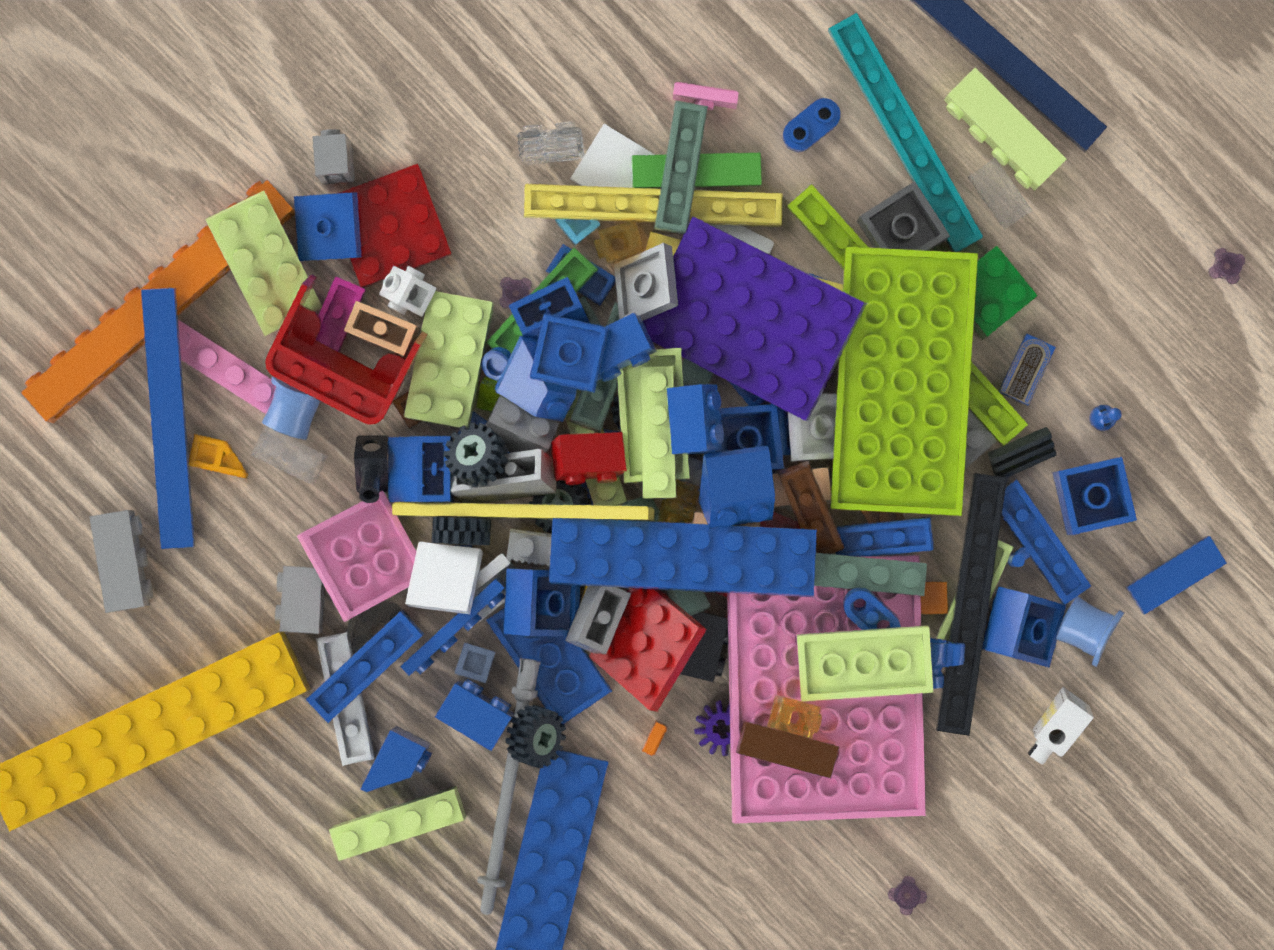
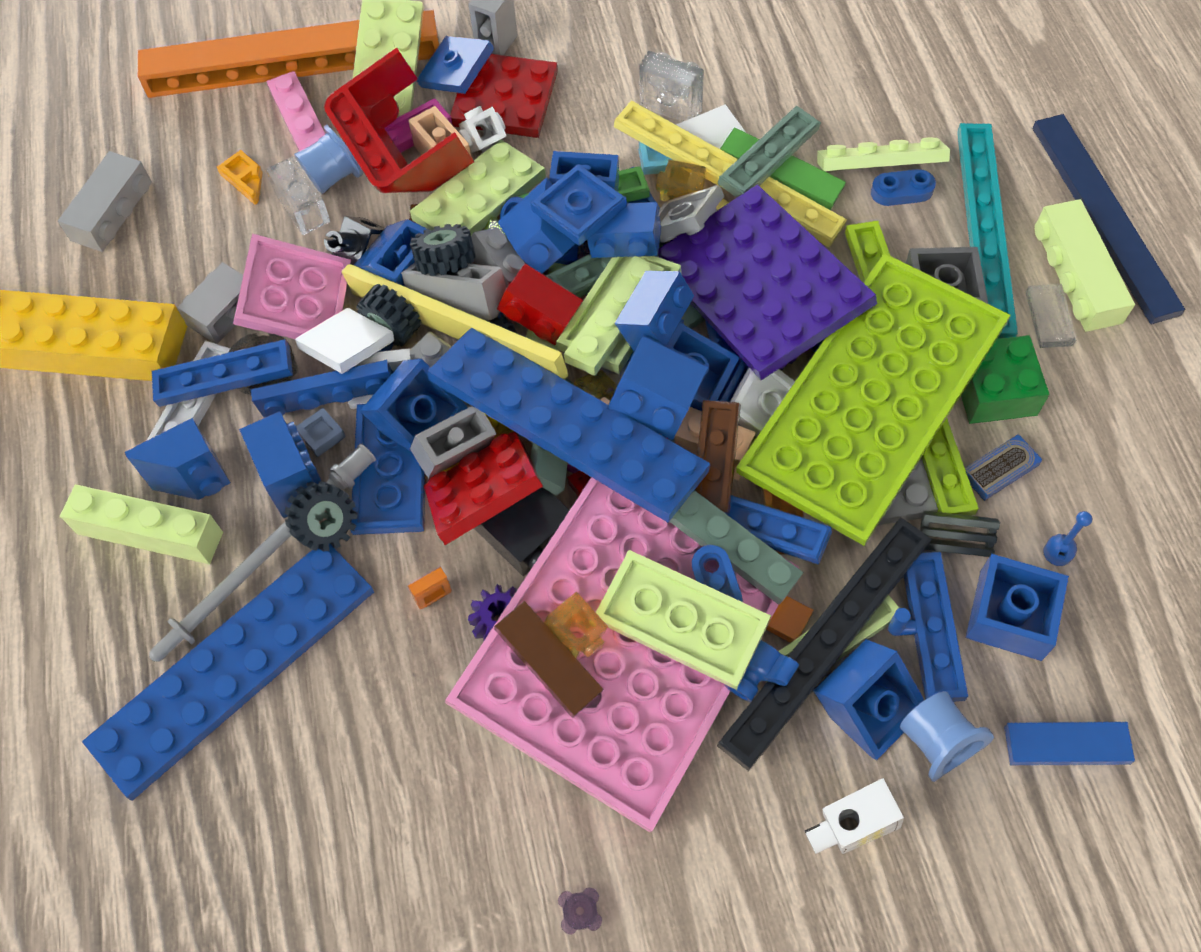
camera: 35 degrees right, 25 degrees down
(168, 418) = (225, 124): blue tile -> none
(705, 95) = (833, 126): bright pink plate -> none
(777, 104) = (870, 155): none -> yellowish green plate

